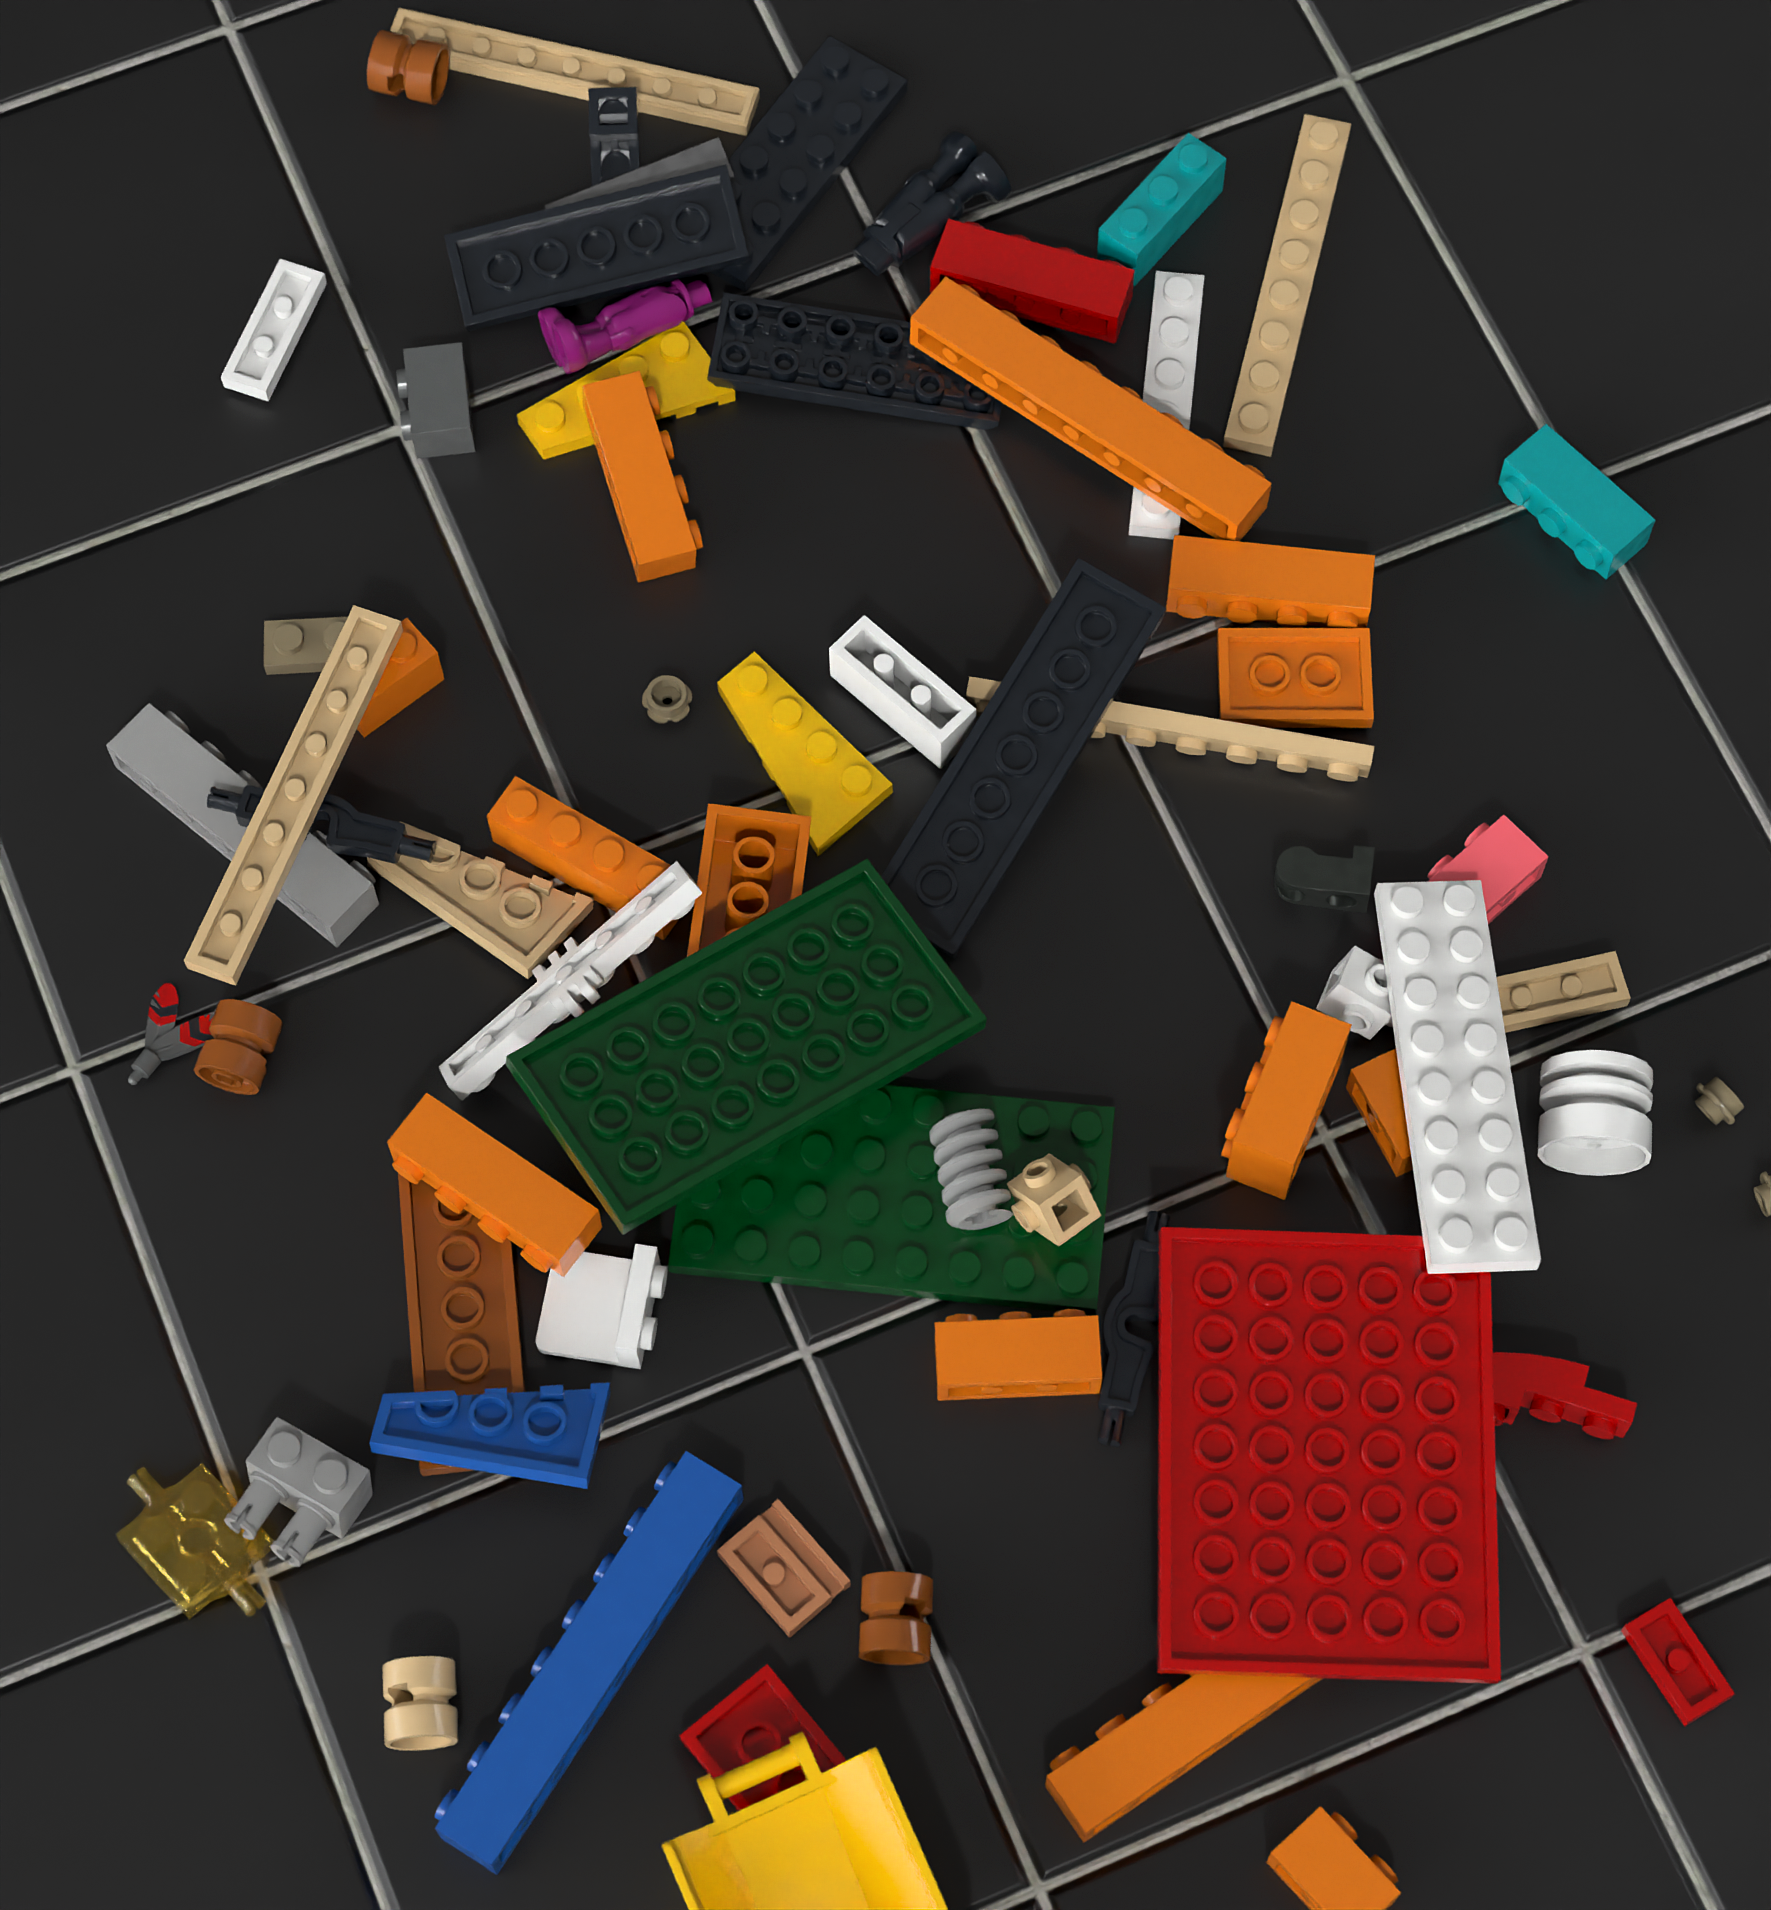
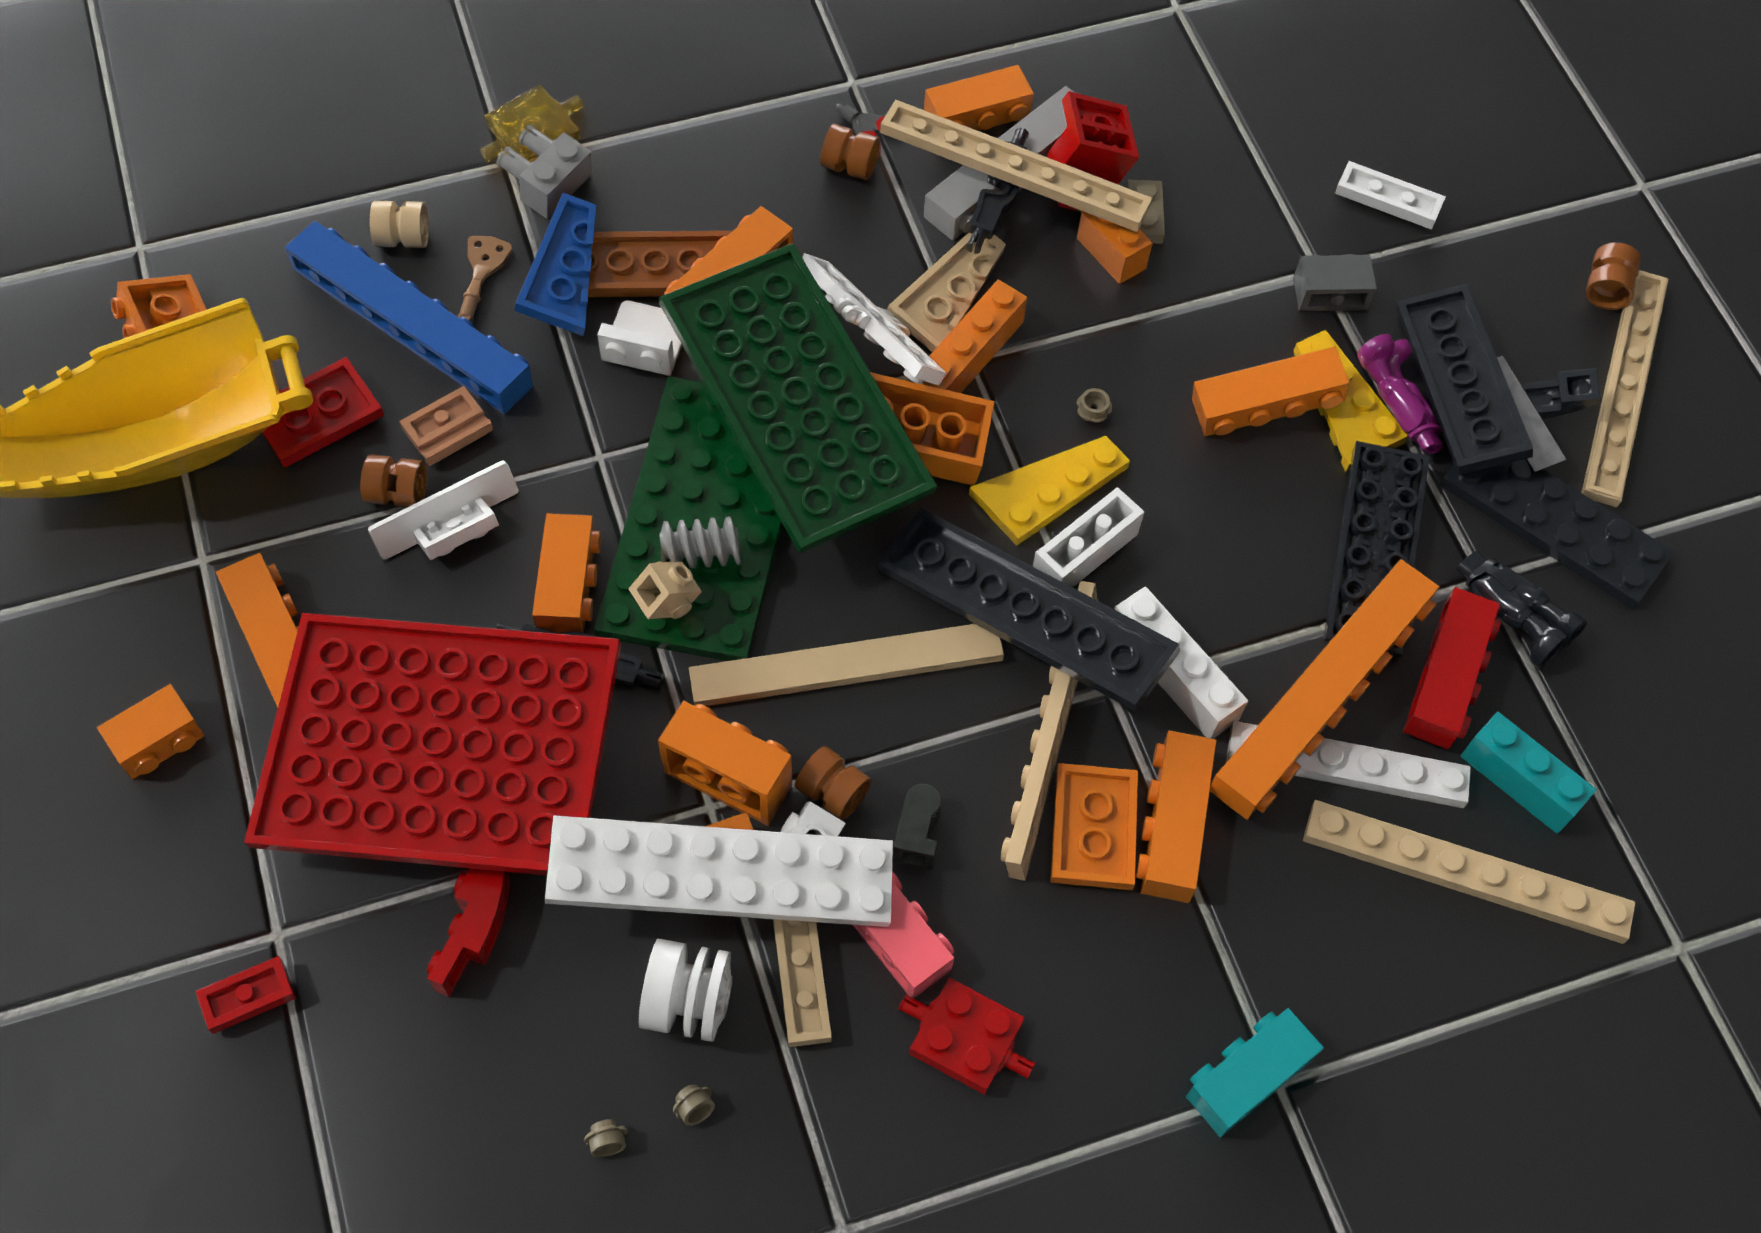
camera: 90 degrees right, 5 degrees down
(130, 874) = (983, 99): none -> orange brick
(236, 685) = (1096, 138): none -> red bracket
(485, 1574) = (482, 269): none -> medium nougat piece
(948, 1528) = (447, 516): none -> white bracket
(1106, 994) = (843, 664): none -> tan tile
(1113, 542) = (1192, 677): none -> white brick
(1291, 972) = (834, 784): none -> dark orange wheel
(1581, 808) = (966, 1036): none -> red plate

